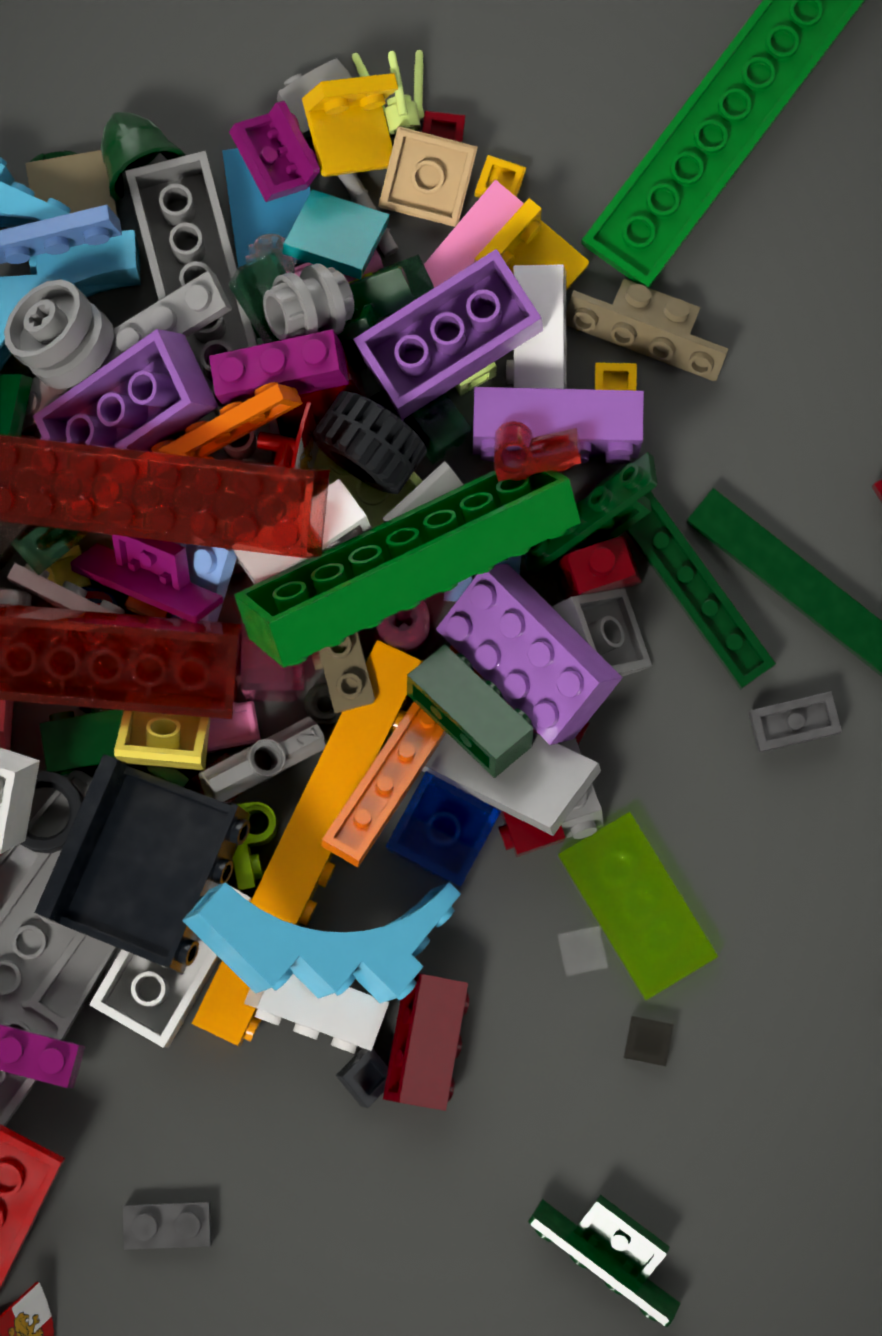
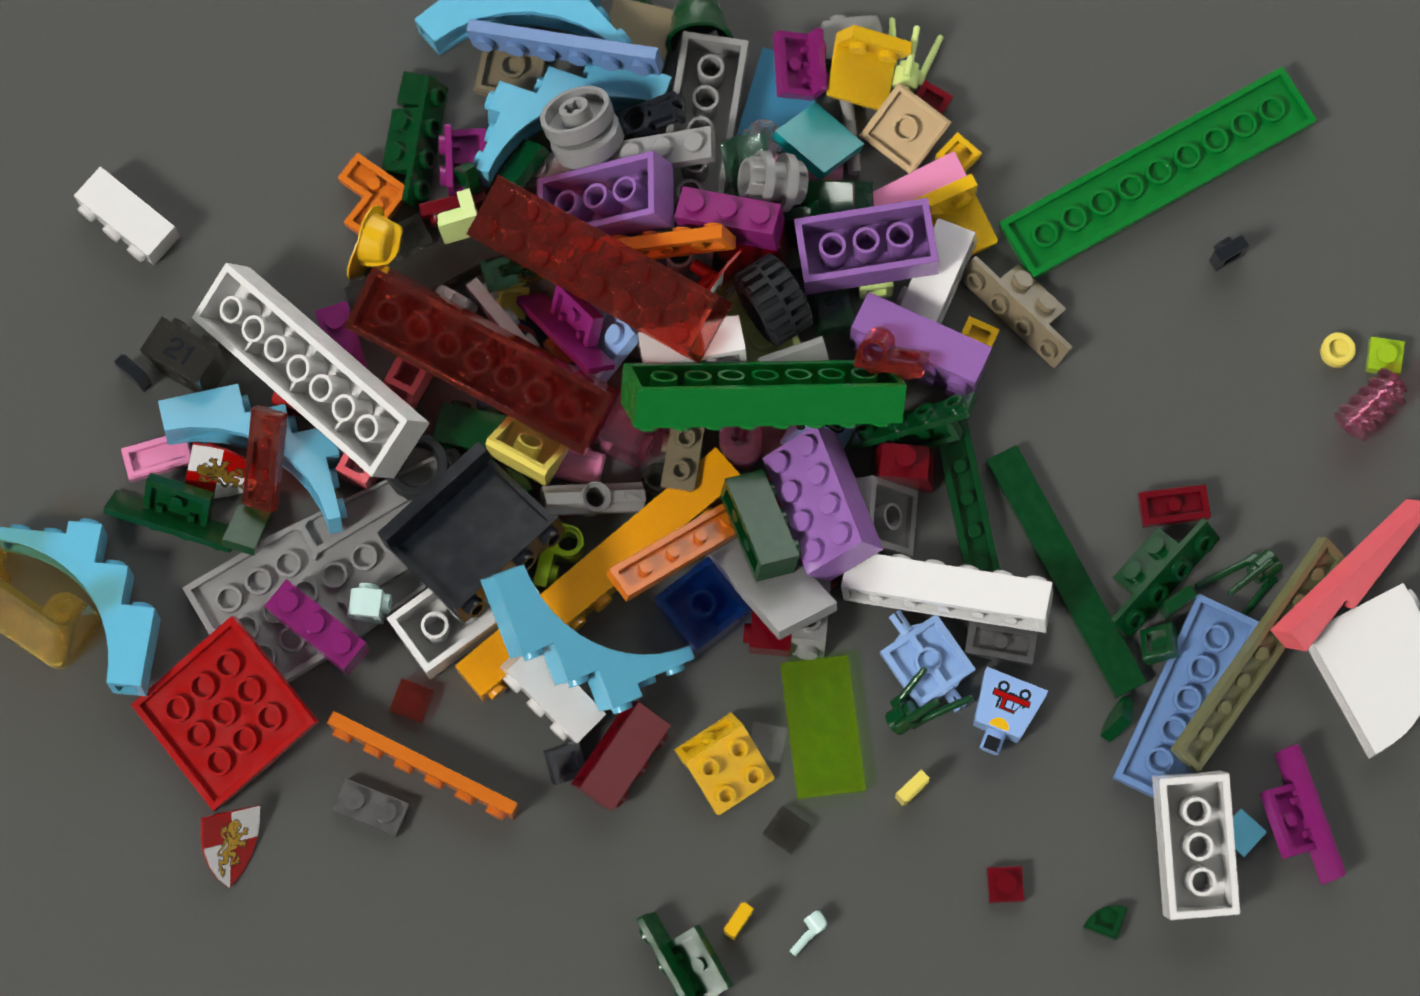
camera: 25 degrees right, 5 degrees down
(61, 995) = (369, 604): none -> light aqua plate
(139, 280) = (657, 114): none -> black piece
(158, 1082) = (411, 701): none -> clear red plate
(186, 1154) = (435, 773): none -> orange plate
(546, 996) = (725, 763): none -> yellow bracket
(642, 1170) = (738, 920): none -> yellow tile
(717, 689) = (950, 591): none -> white brick
(722, 779) = (928, 646): none -> light blue plate
(728, 851) = (908, 715): none -> dark green plant
(729, 1133) = (816, 923): none -> light aqua hand
(770, 932) = (912, 788): none -> light yellow tile
(833, 796) = (1005, 708): none -> light blue torso
(852, 163) = (1228, 251): none -> black plate

